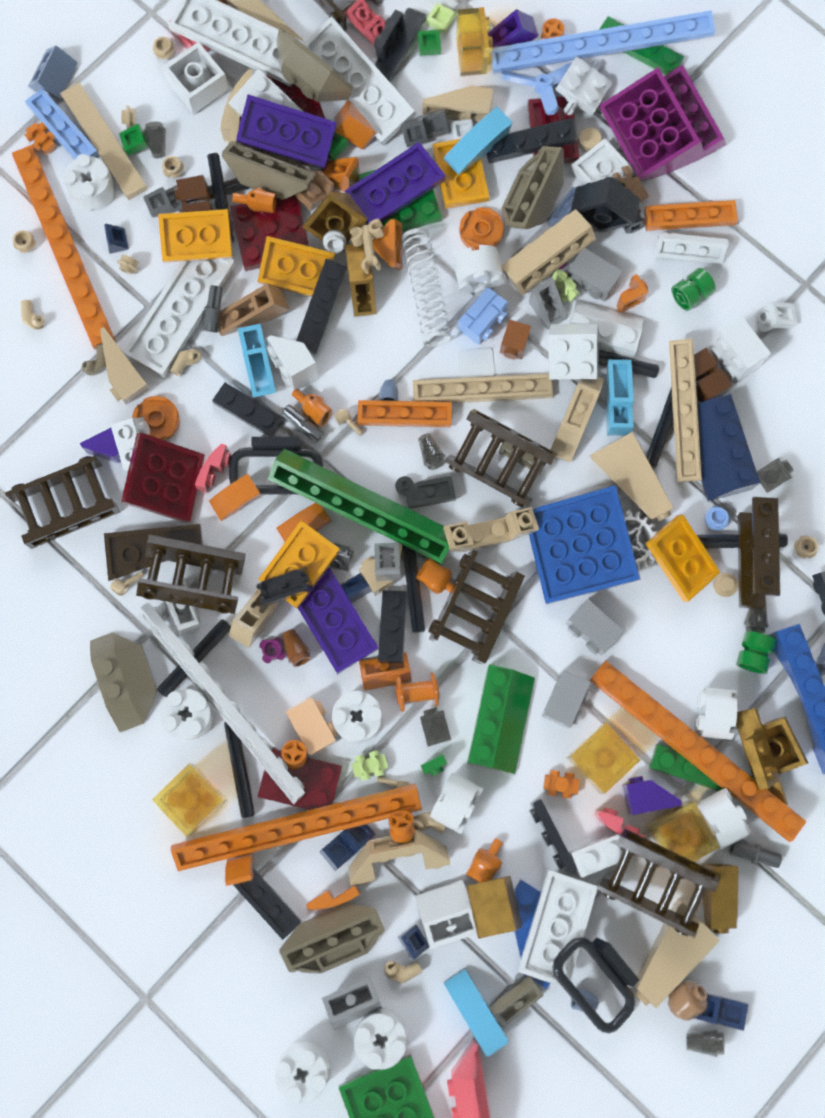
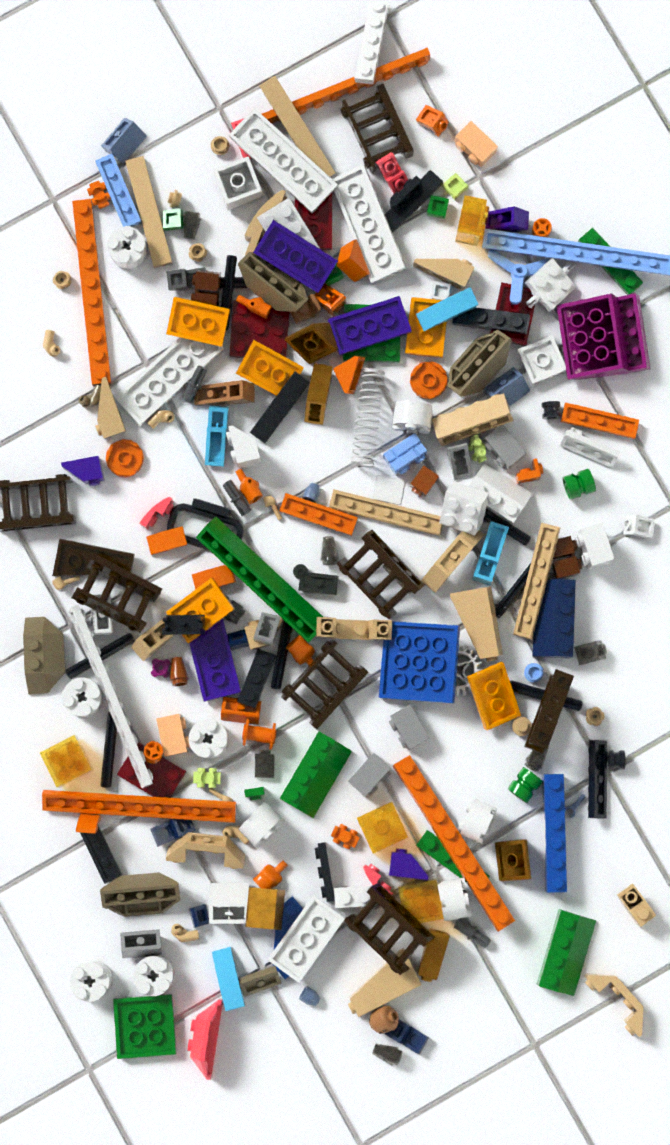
camera: 20 degrees right, 5 degrees up
(115, 238) = (135, 299): dark blue slope -> none
(125, 435) = (102, 475): white bracket -> none
(128, 264) = (138, 324): tan plate -> none
(162, 478) = (116, 510): dark red plate -> none
(248, 410) = (197, 473): black plate -> none
(310, 72) = (328, 210): dark tan wedge -> none
(327, 899) = (145, 865): orange slope -> none
(334, 241) = (306, 358): white plate -> none
(365, 236) = (331, 363): tan bar -> none
(401, 826) = (215, 829): orange wheel -> none
(425, 127) = (405, 281): dark grey slope -> none
(589, 138) = (541, 330): tan tile -> none
(606, 204) = (530, 395): black brick -> none
(612, 966) = (336, 977): black bar -> none
(633, 184) = (559, 384): medium nougat plate -> none
(759, 752) = (498, 861): pearl gold bracket -> none

